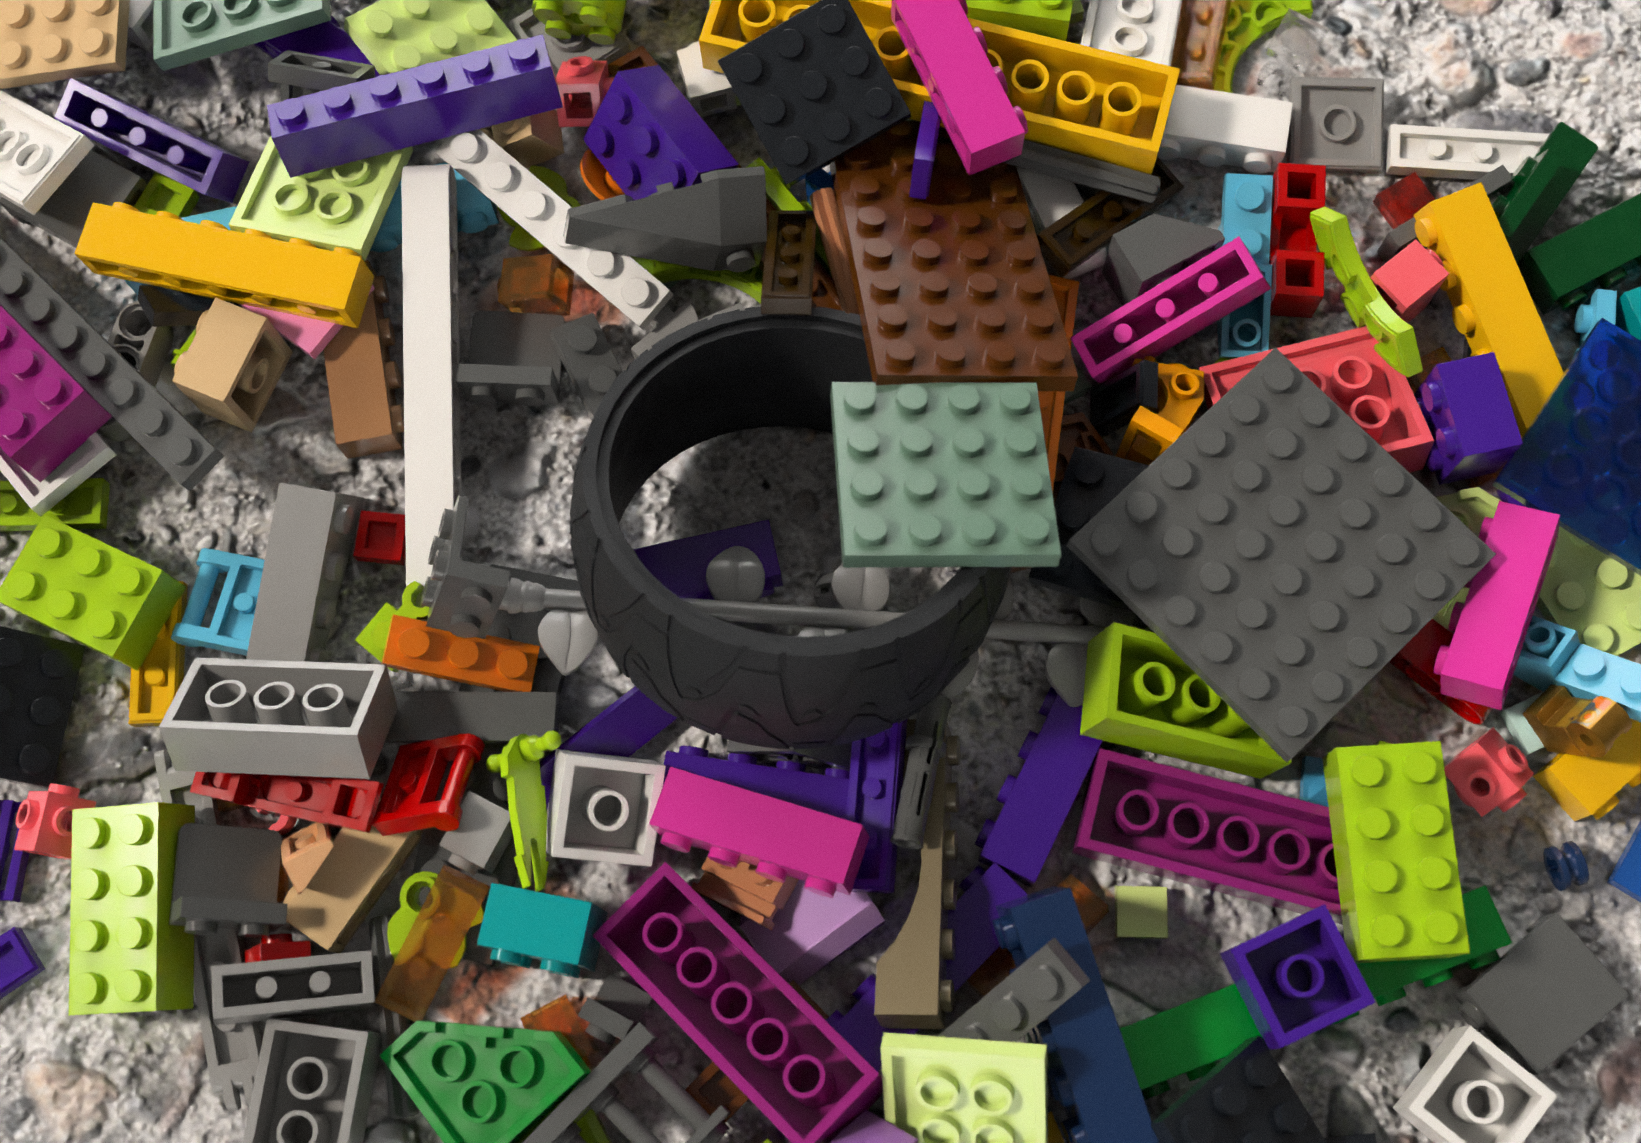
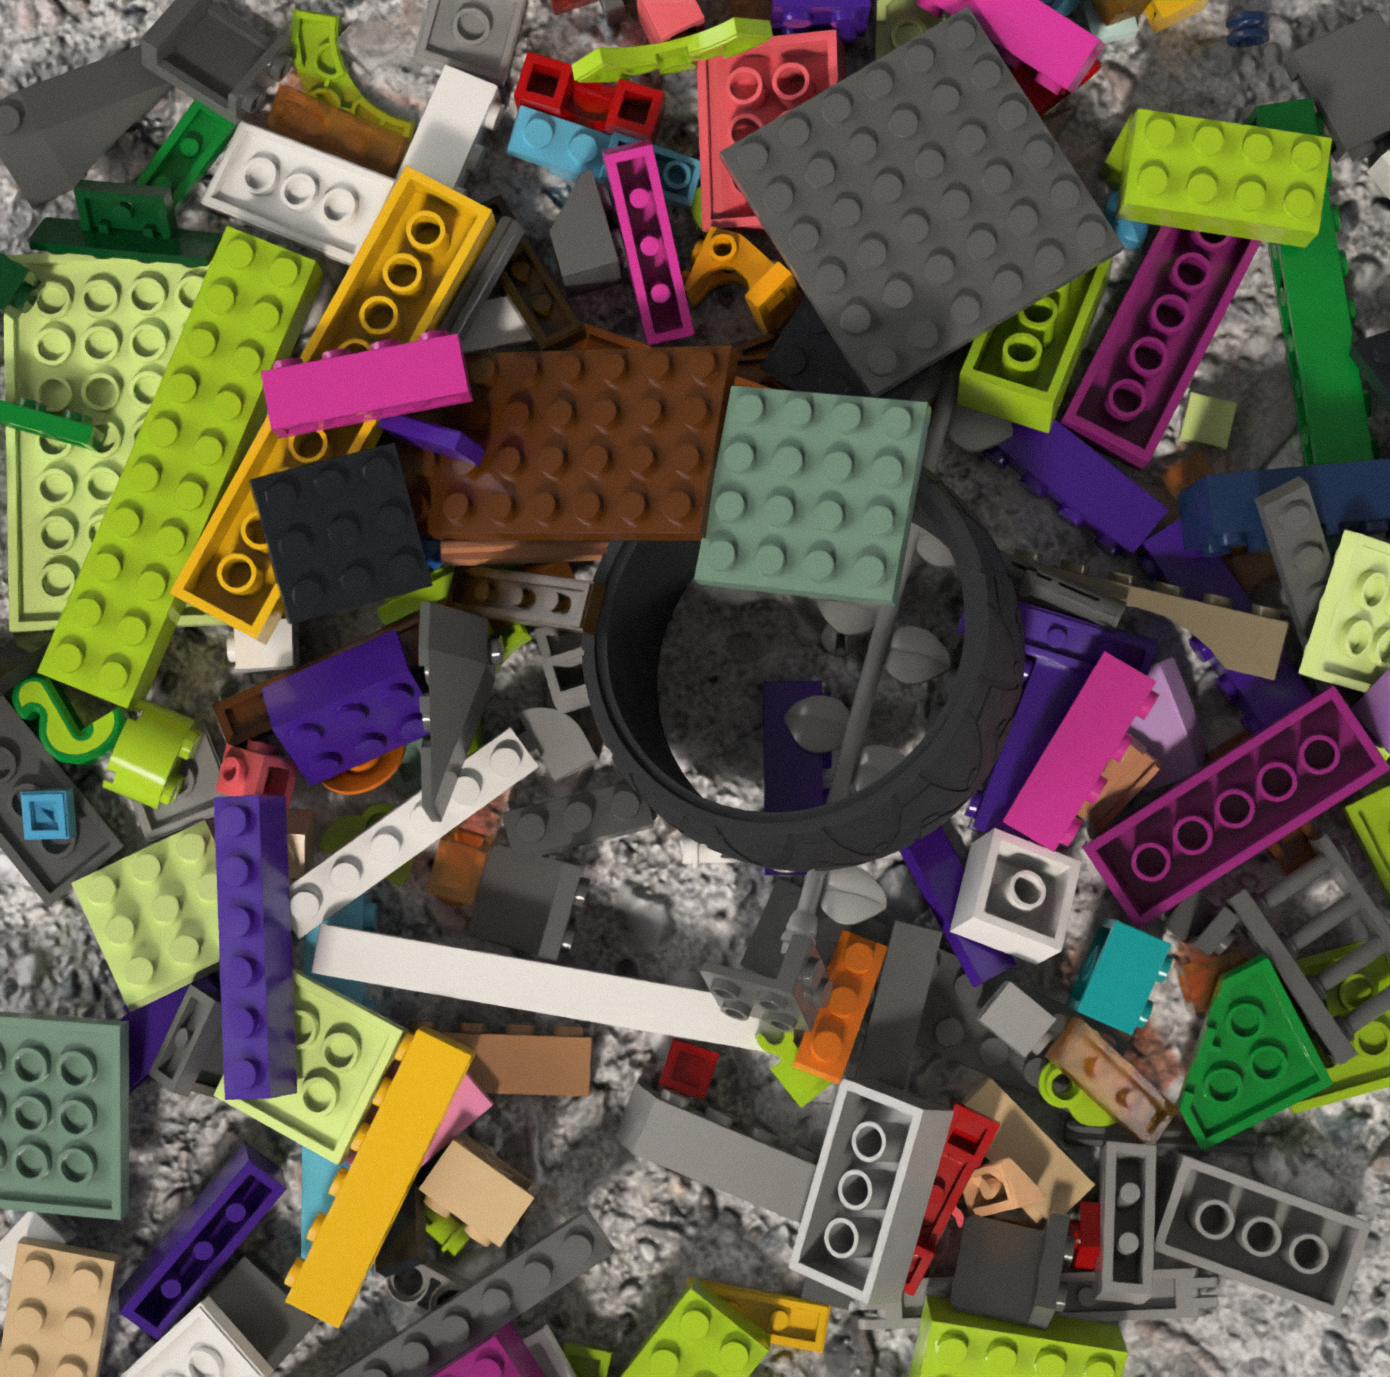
camera: 80 degrees left, 10 degrees up
(167, 196) = (272, 1239): lime plate -> none
(236, 606) = (727, 1220): medium azure plate -> none
(415, 780) = (956, 1072): red plate -> none
(527, 801) = (1000, 966): lime piece -> none
(1121, 396) = (719, 308): black tile -> none
(1297, 978) = (1313, 295): dark purple brick -> none
(1489, 773) = (1152, 72): coral brick -> none

